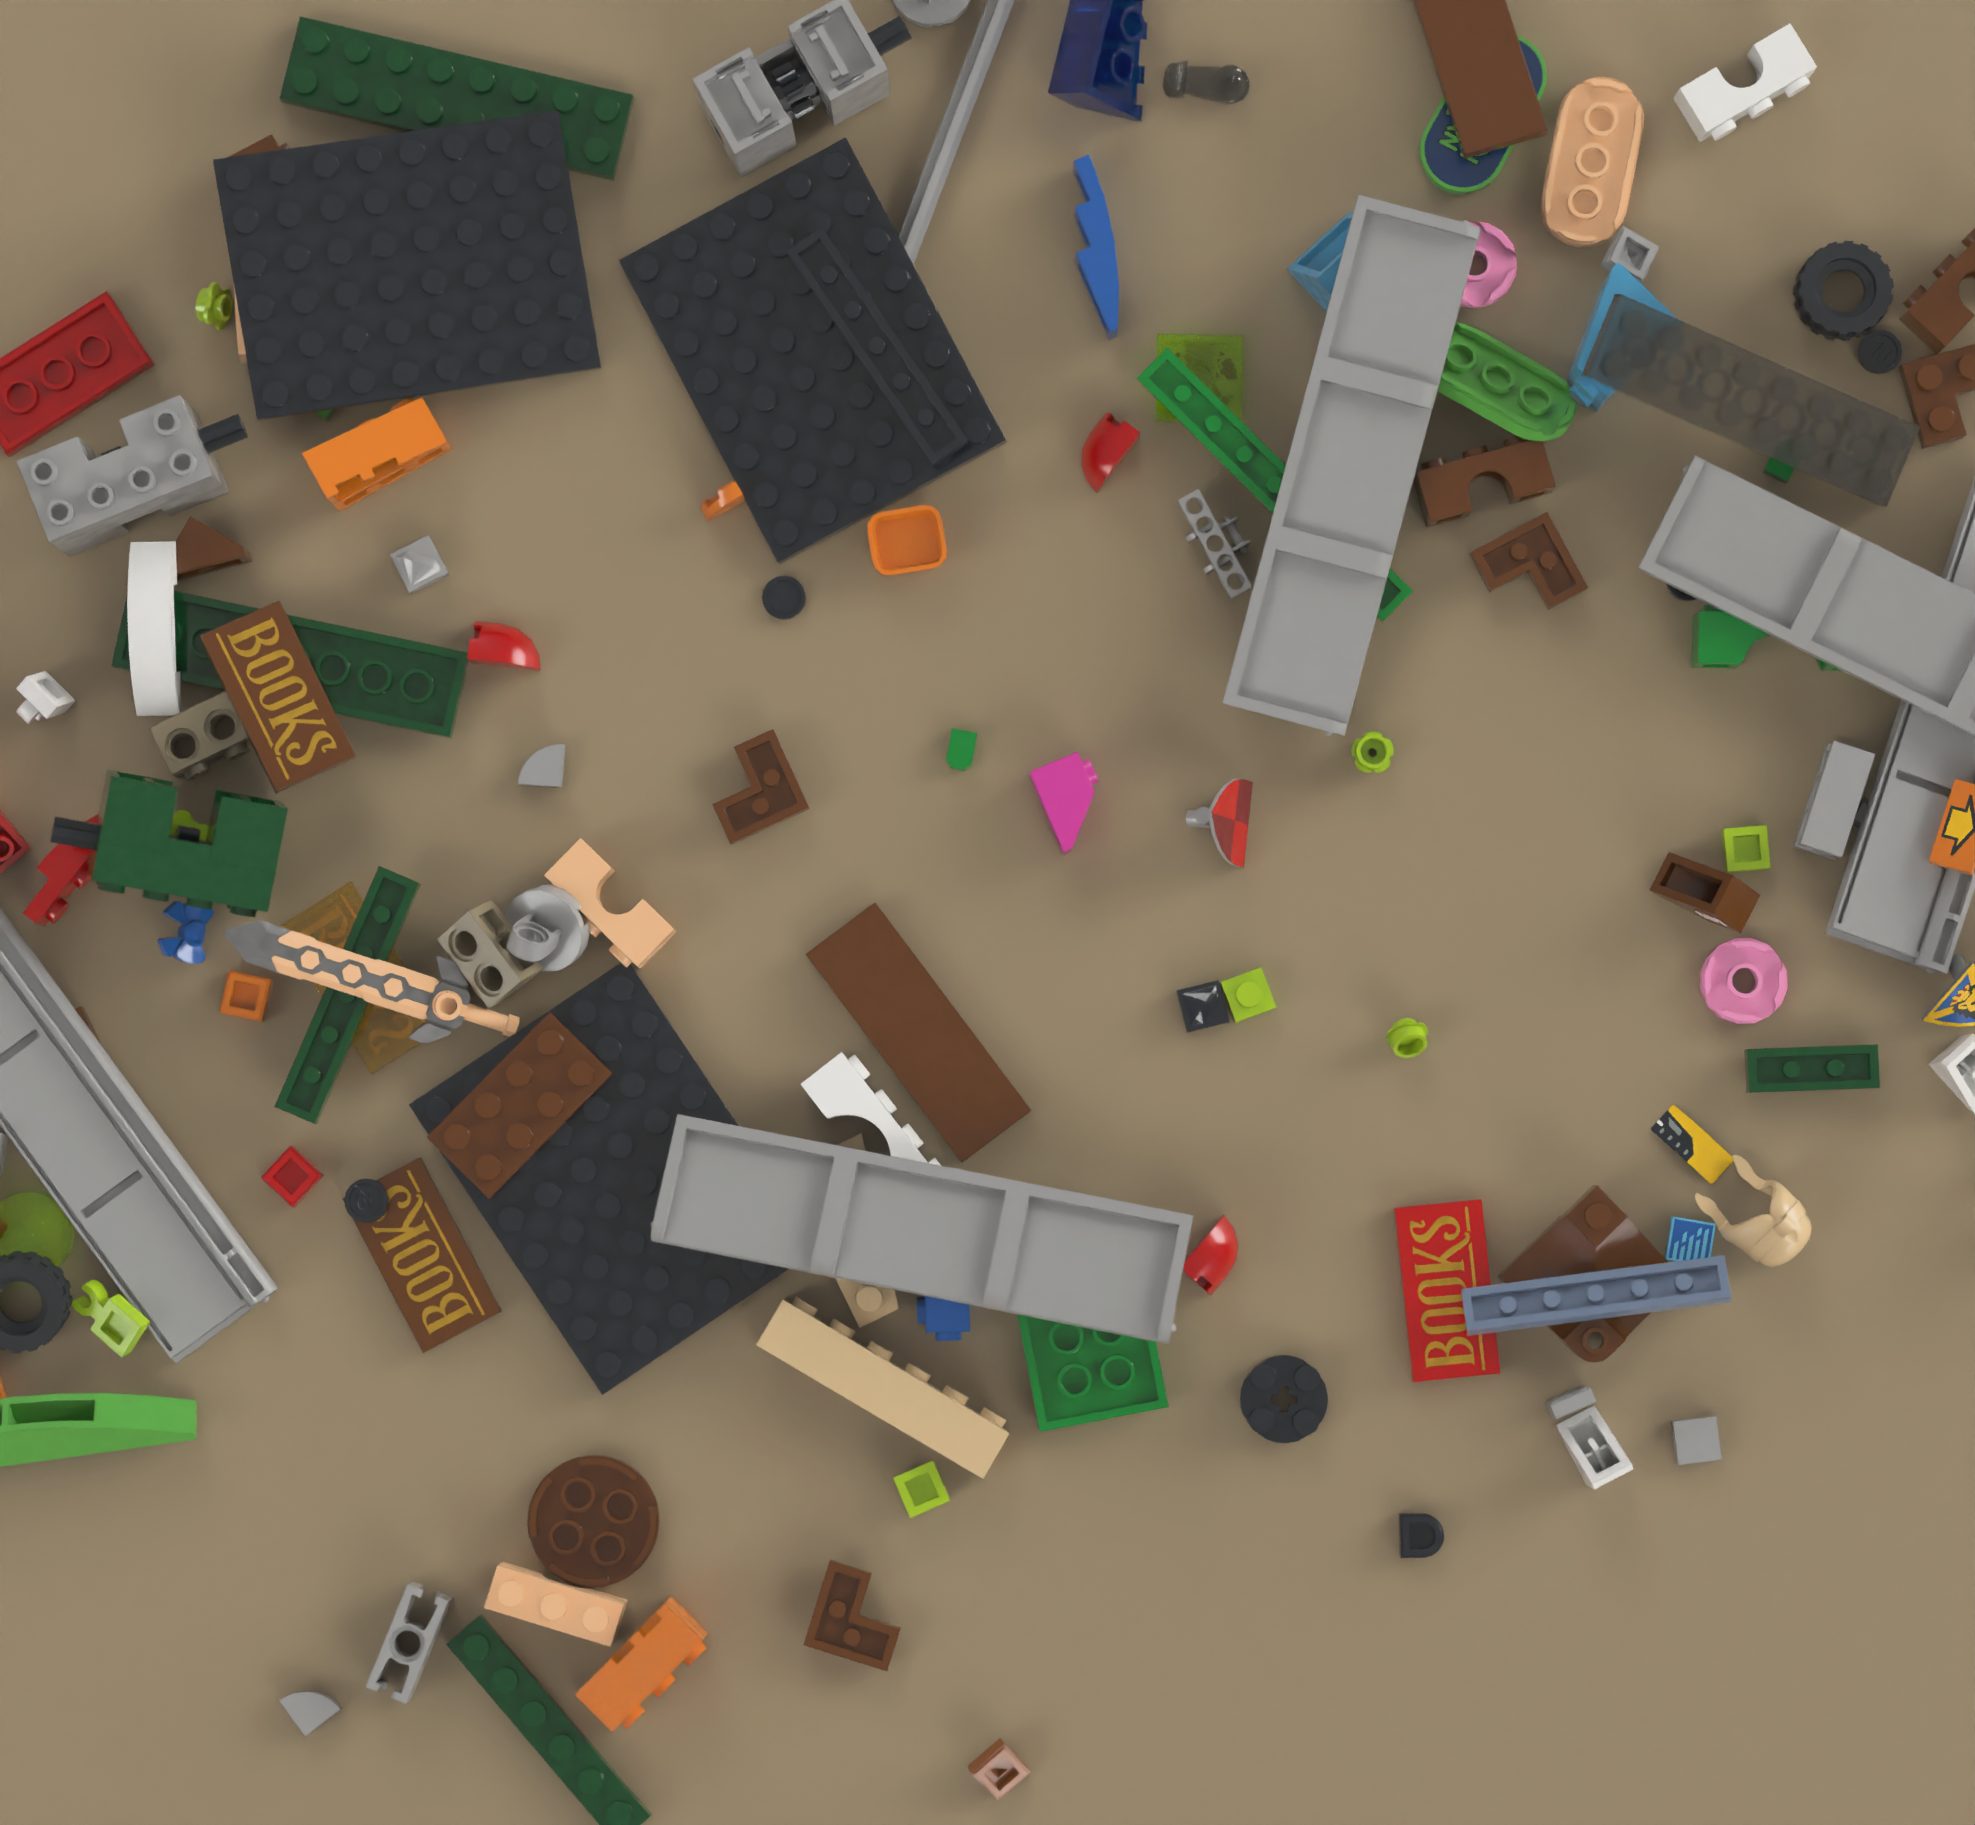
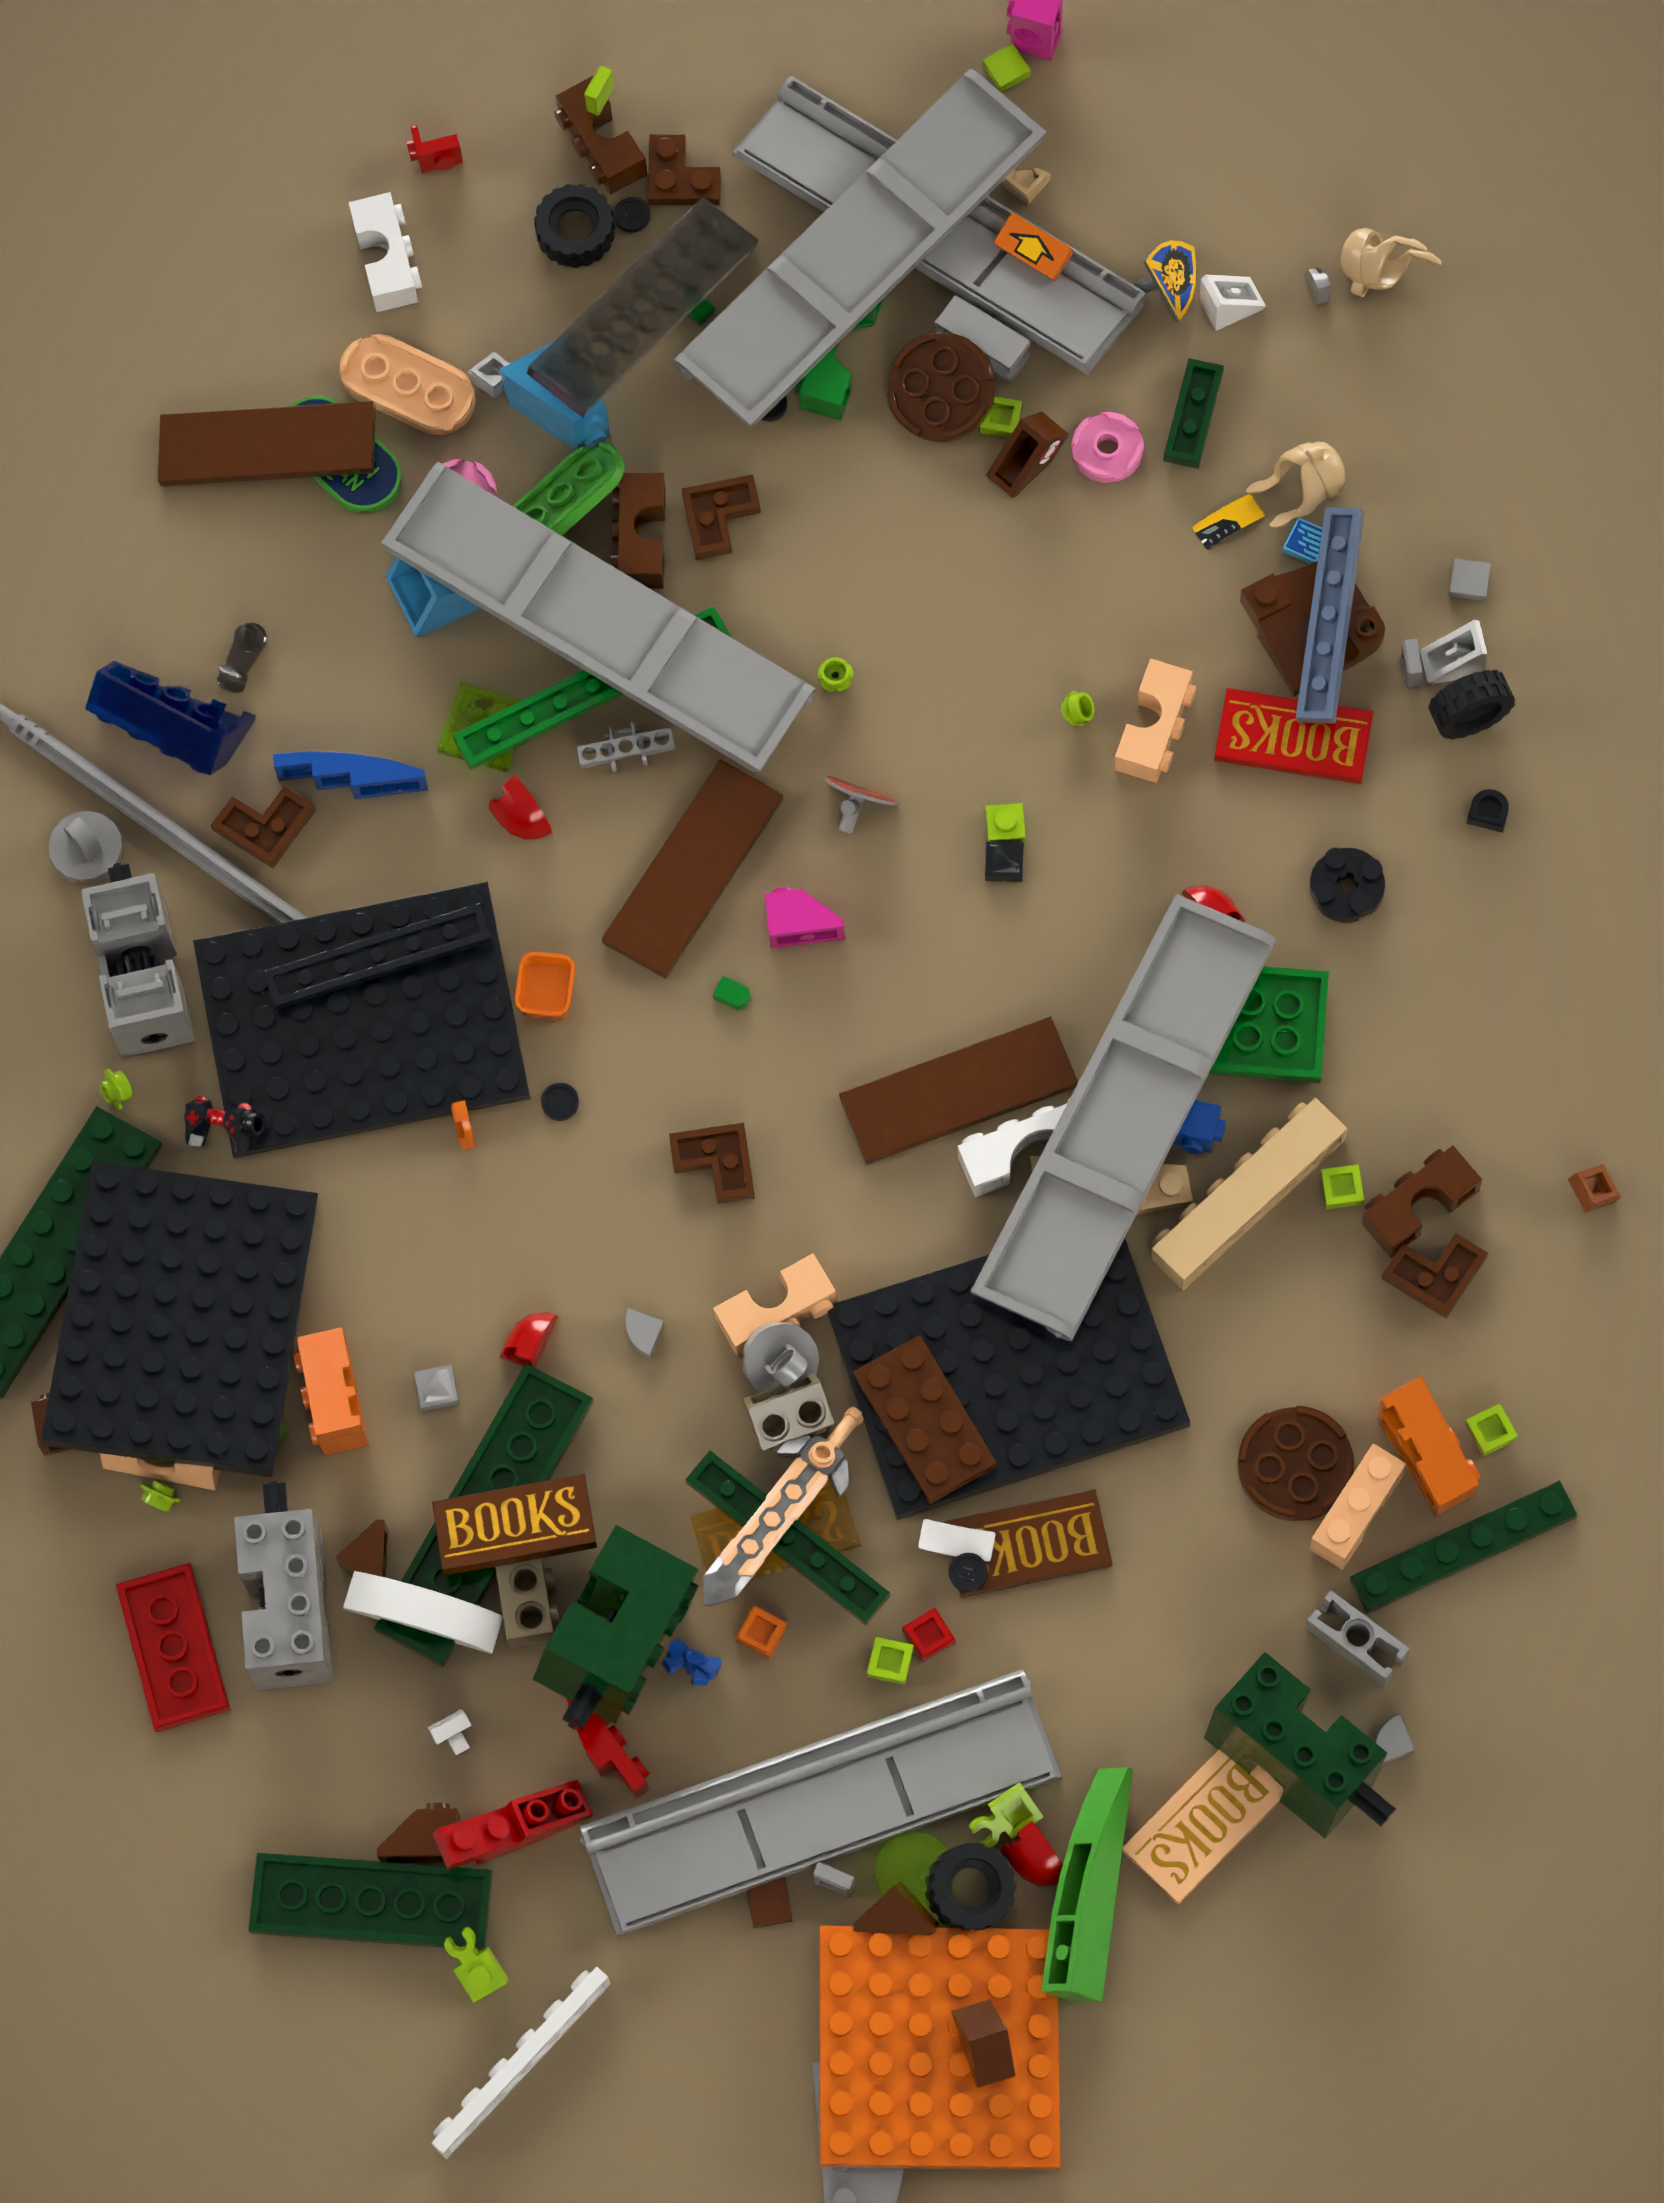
camera: 70 degrees left, 15 degrees down
(78, 1358) = (1033, 1857): none -> red brick
(168, 1529) = (1202, 1824): none -> light nougat tile
(234, 1652) = (1320, 1770): none -> dark green piece
(248, 1144) = (890, 1661): none -> lime plate
(400, 1177) = (955, 1540): none -> white sticker
(647, 255) = (238, 1121): none -> black piece
(657, 108) = (115, 1088): none -> lime plate
(686, 1726) = (1491, 1430): none -> lime plate
(963, 1599) = (1444, 1178): none -> reddish brown arch
(1001, 180) = (266, 834): none -> reddish brown plate
(1096, 661) = (692, 869): none -> reddish brown tile
(1377, 1131) = (1146, 750): none -> light nougat arch
(1532, 1485) = (1471, 704): none -> black tyre
(1758, 771) = (941, 387): none -> reddish brown tile
(1886, 106) = (436, 153): none -> red bracket

